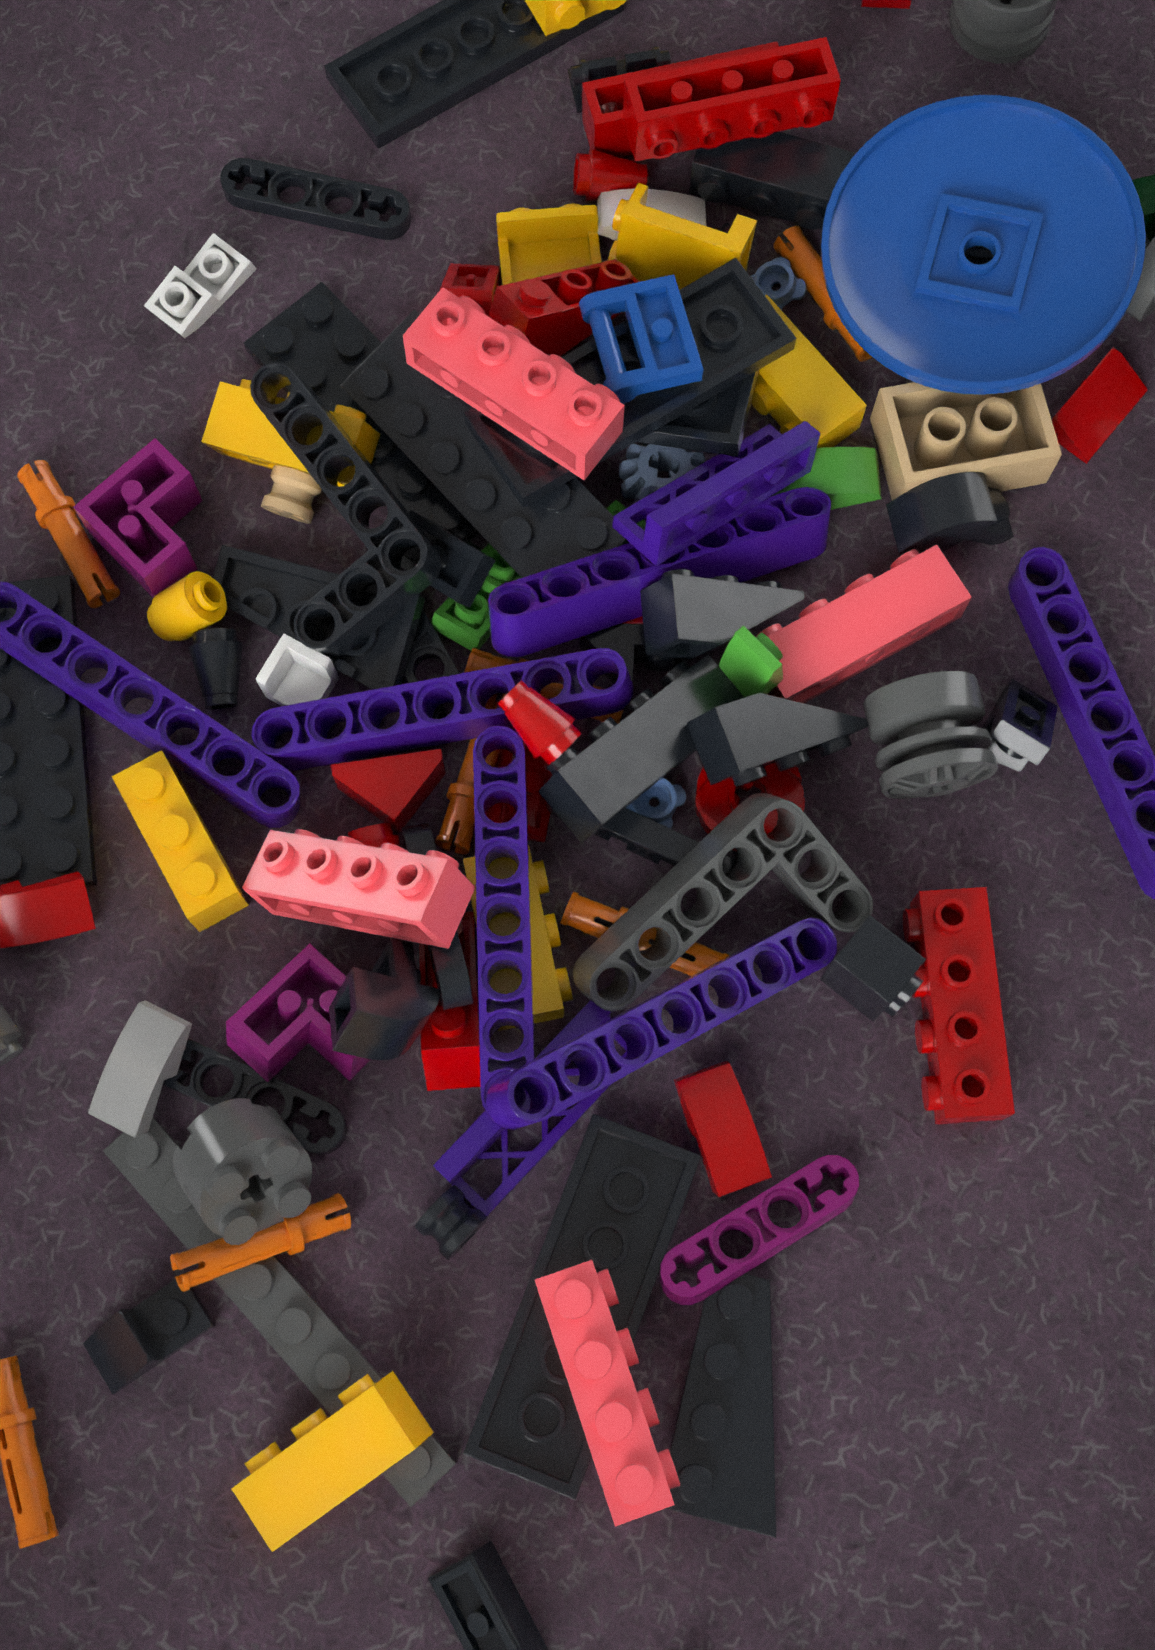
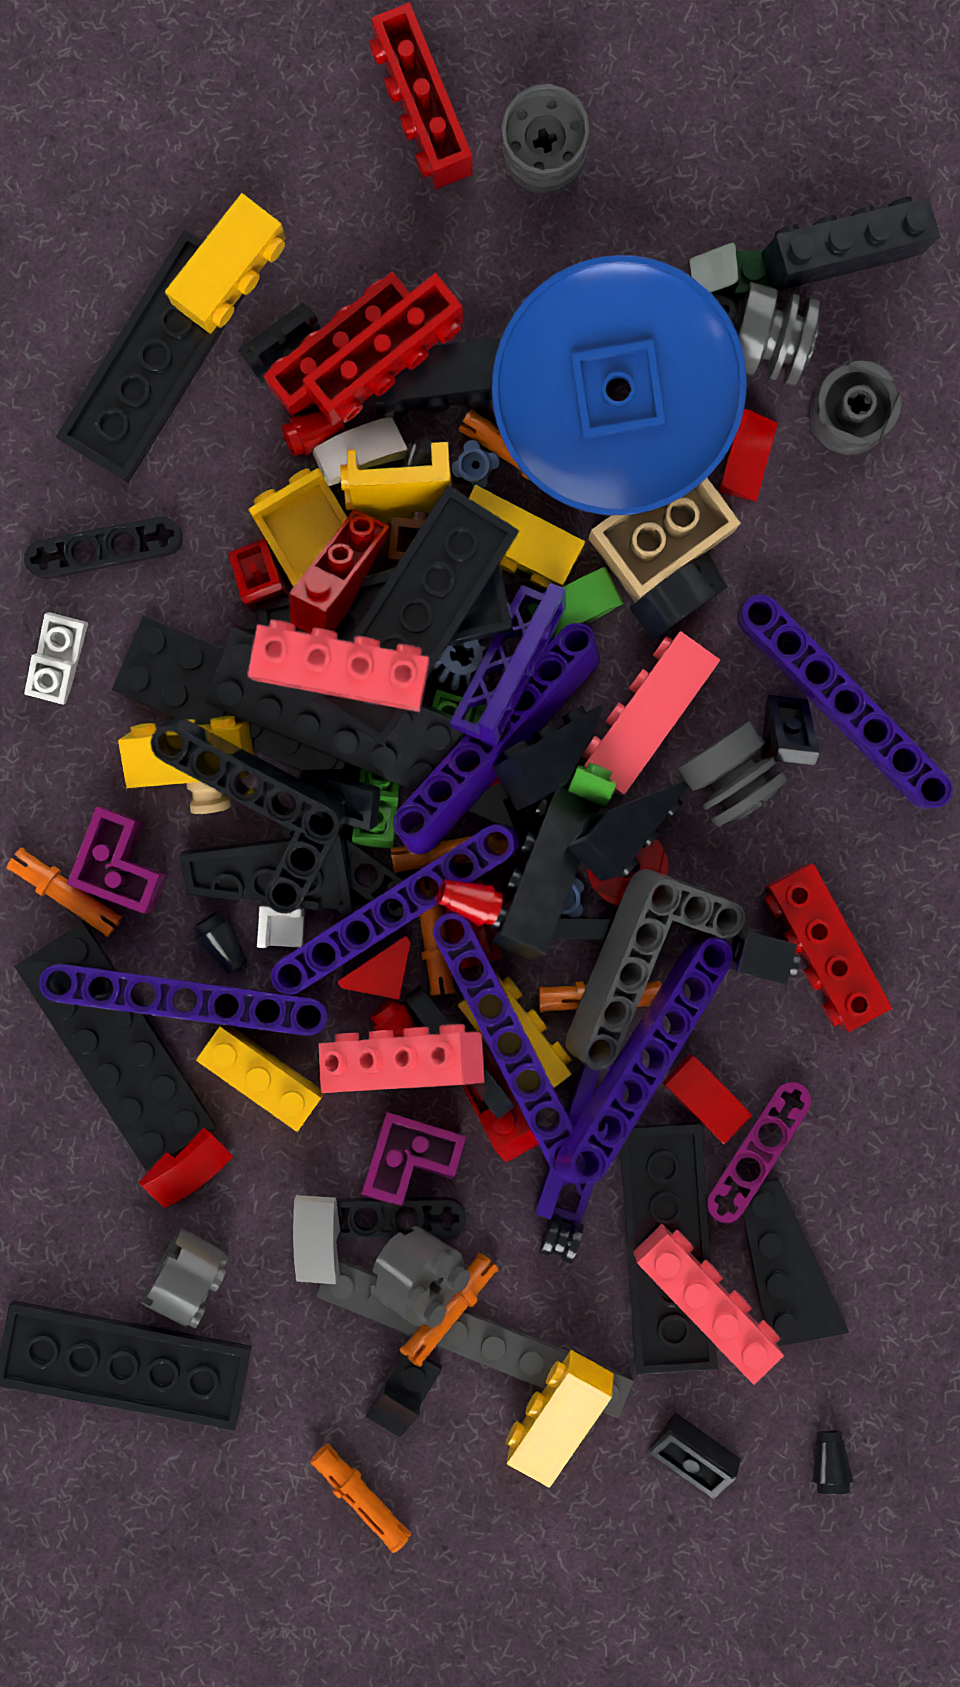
camera: 25 degrees left, 15 degrees up
(187, 607) = (179, 912): yellow brick -> none
(383, 1009) = (463, 1140): black brick -> none
(658, 331) = (422, 578): blue plate -> none

